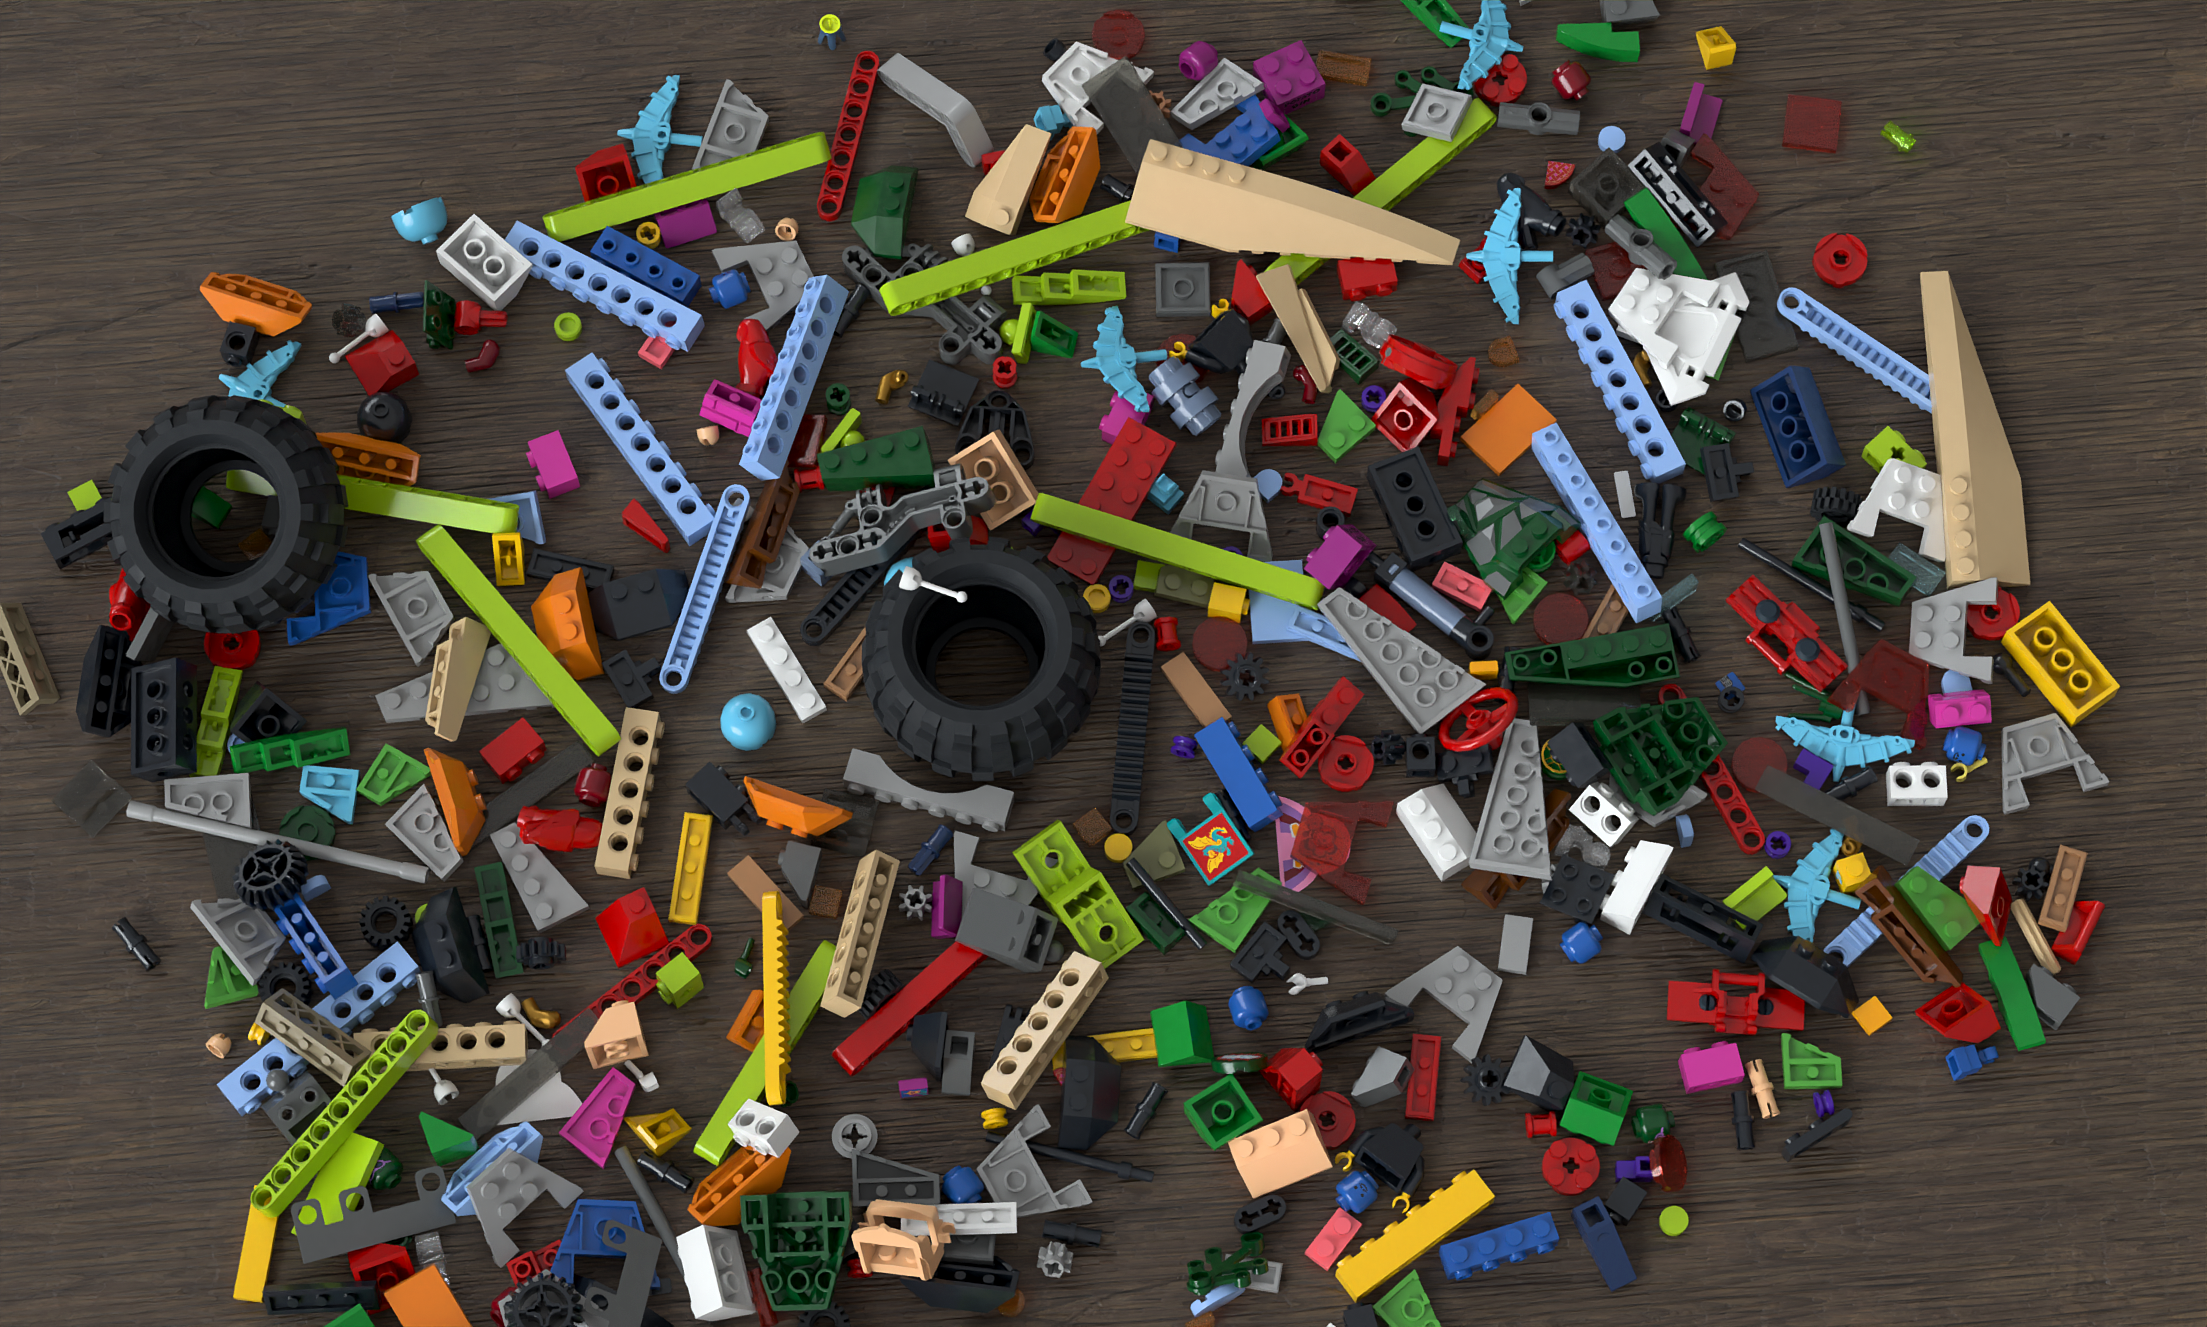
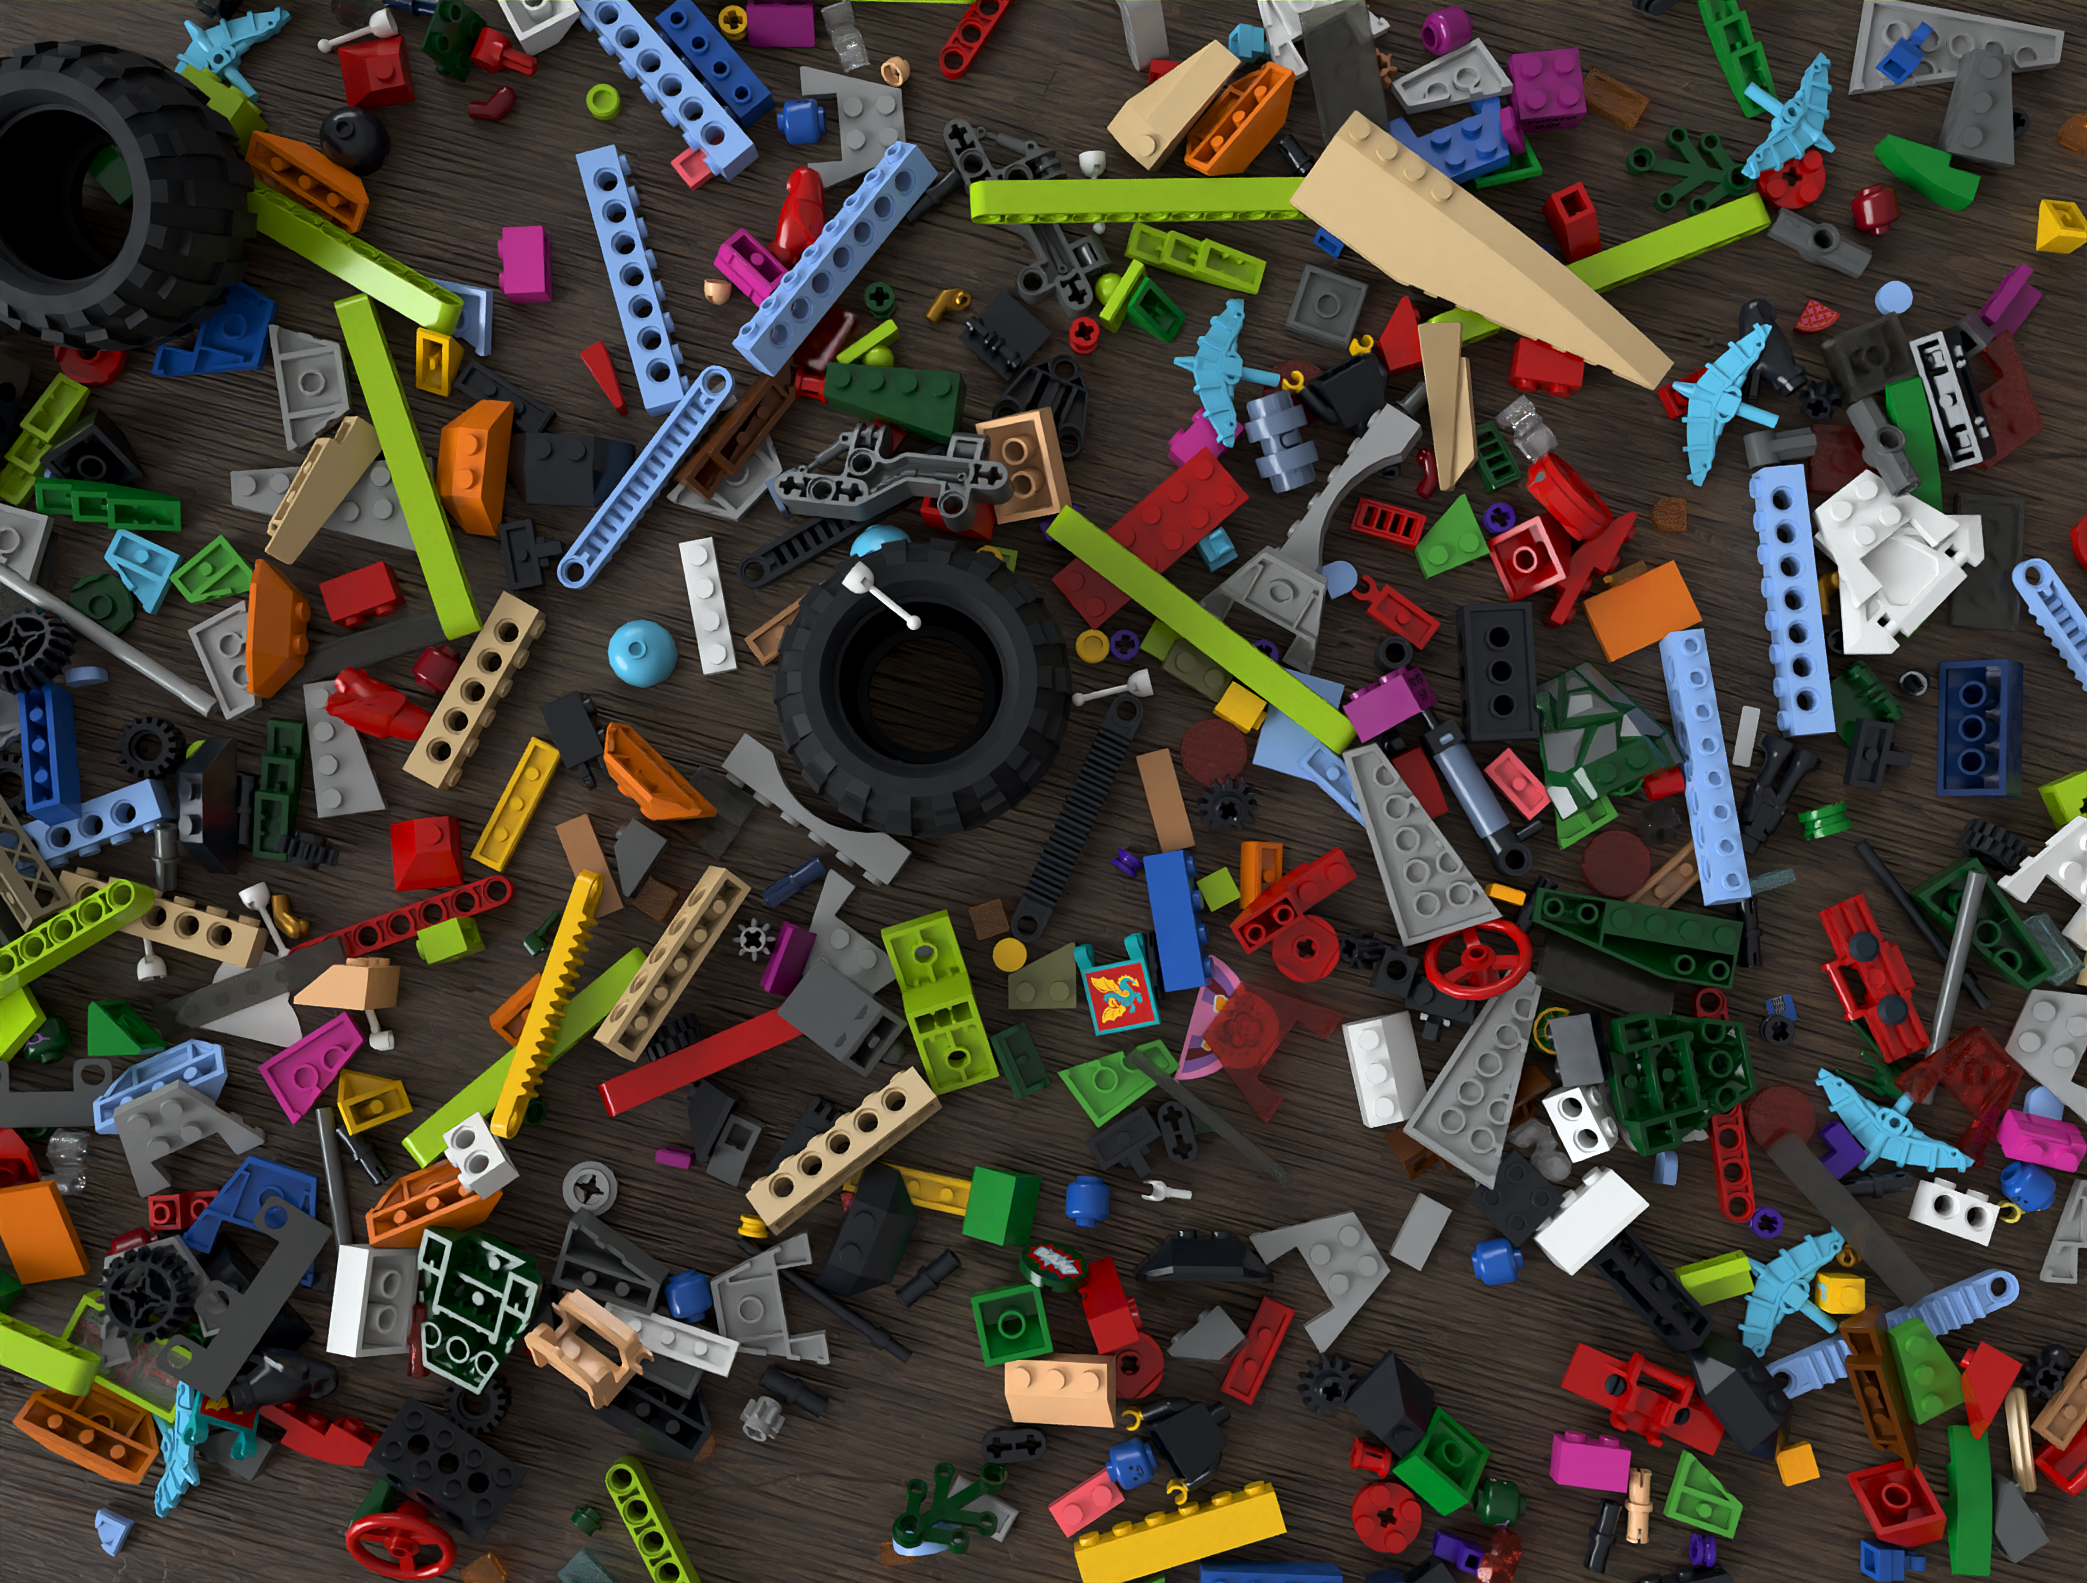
camera: 15 degrees right, 15 degrees up
(884, 209) = (1015, 87): dark green wedge -> none
(1166, 903) = (1039, 1044): black bar -> none
(1167, 634) = (1157, 720): red bush -> none
(1437, 112) = (1704, 194): light grey tile -> none

